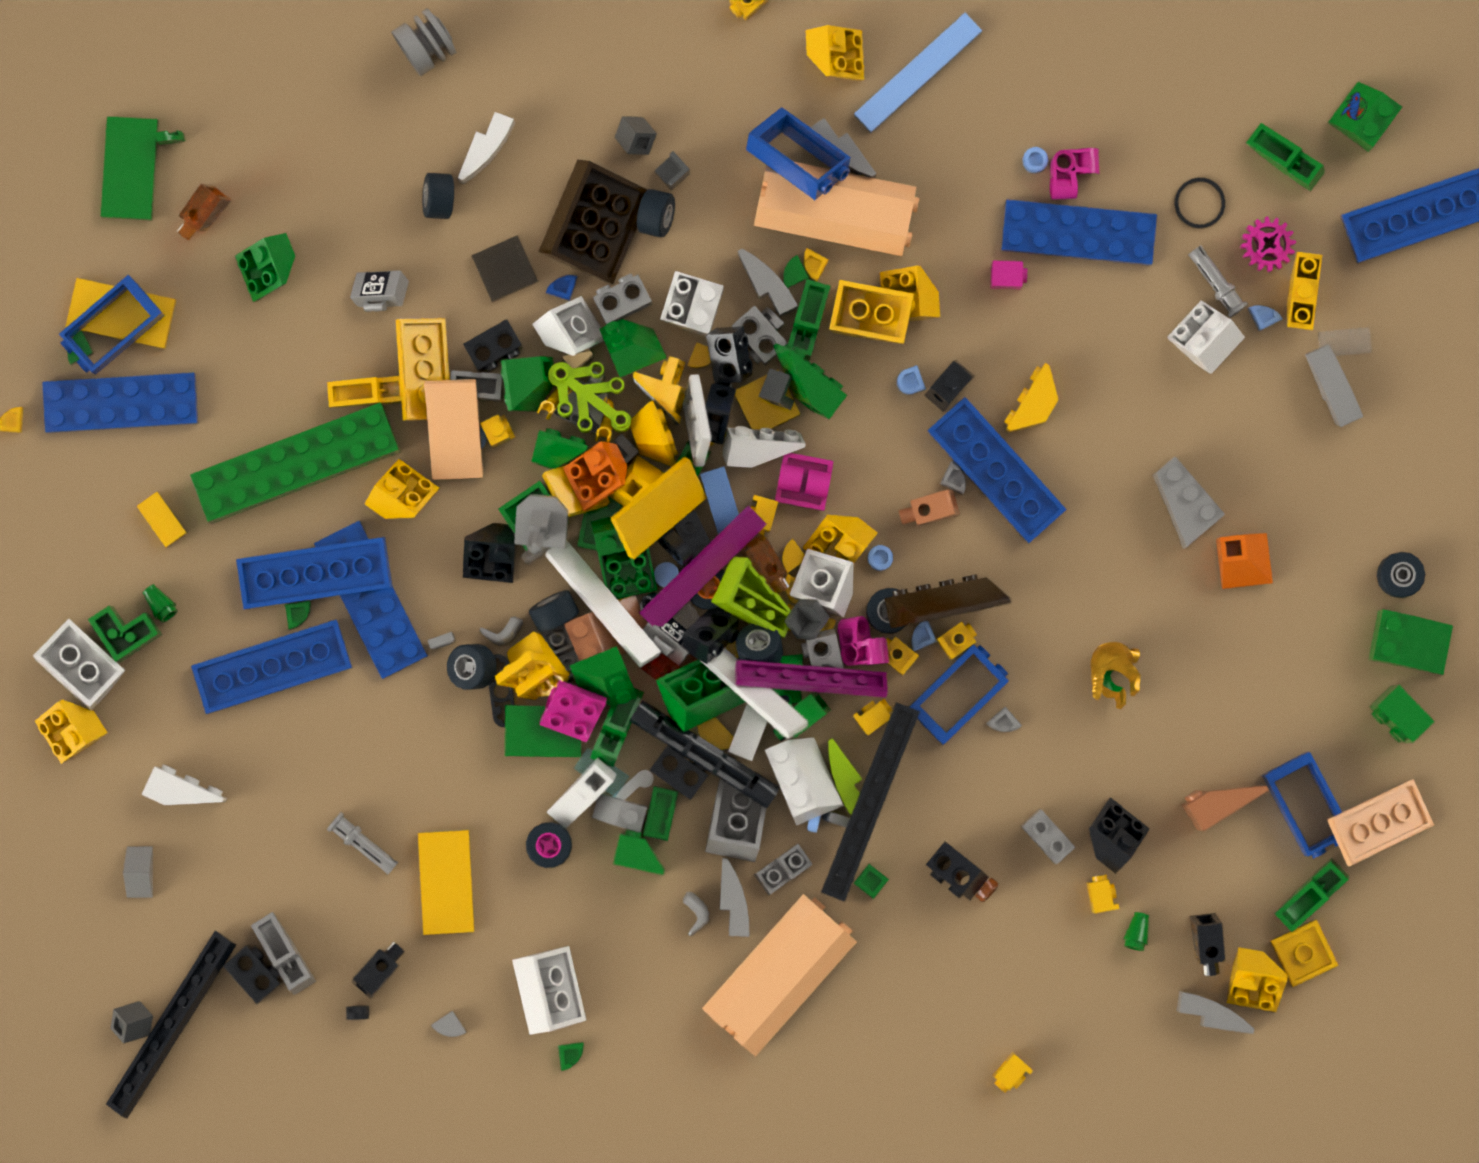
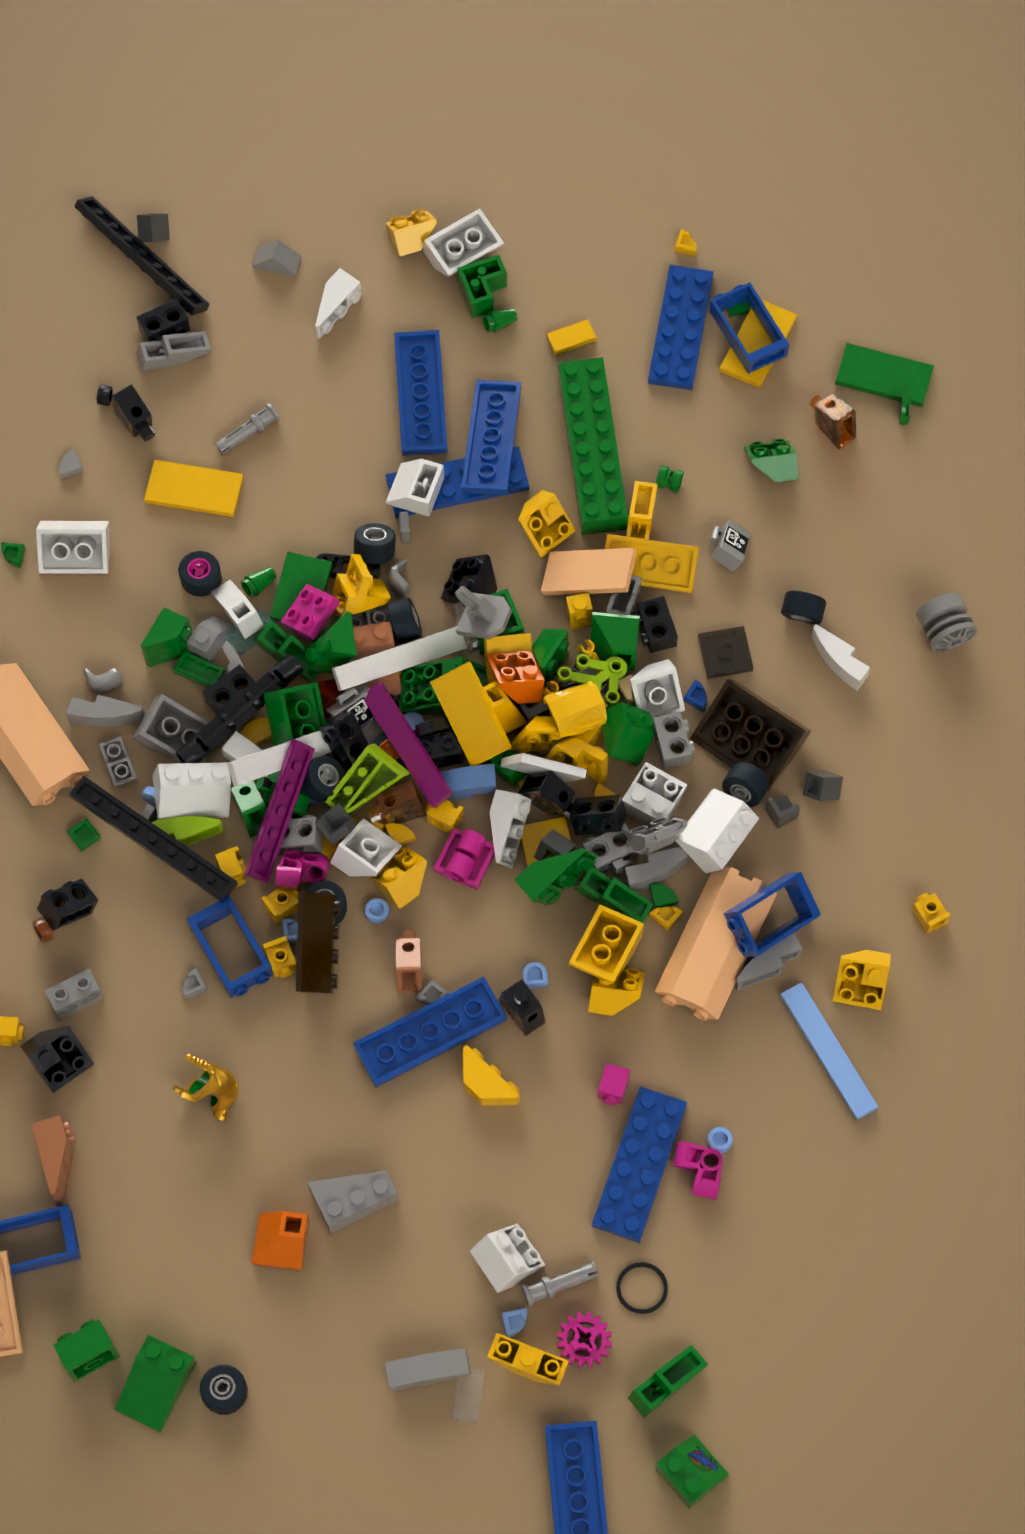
camera: 110 degrees right, 20 degrees down
(297, 613) = (460, 423): green tile -> none
(315, 377) = (664, 476): none -> green wheel
(397, 638) = (416, 486): none -> white slope
(542, 780) = (258, 581): none -> green cone
(627, 399) = (577, 709): none -> yellow slope
(718, 229) = (716, 830): none -> white slope
(746, 285) = (661, 834): none -> light grey slope

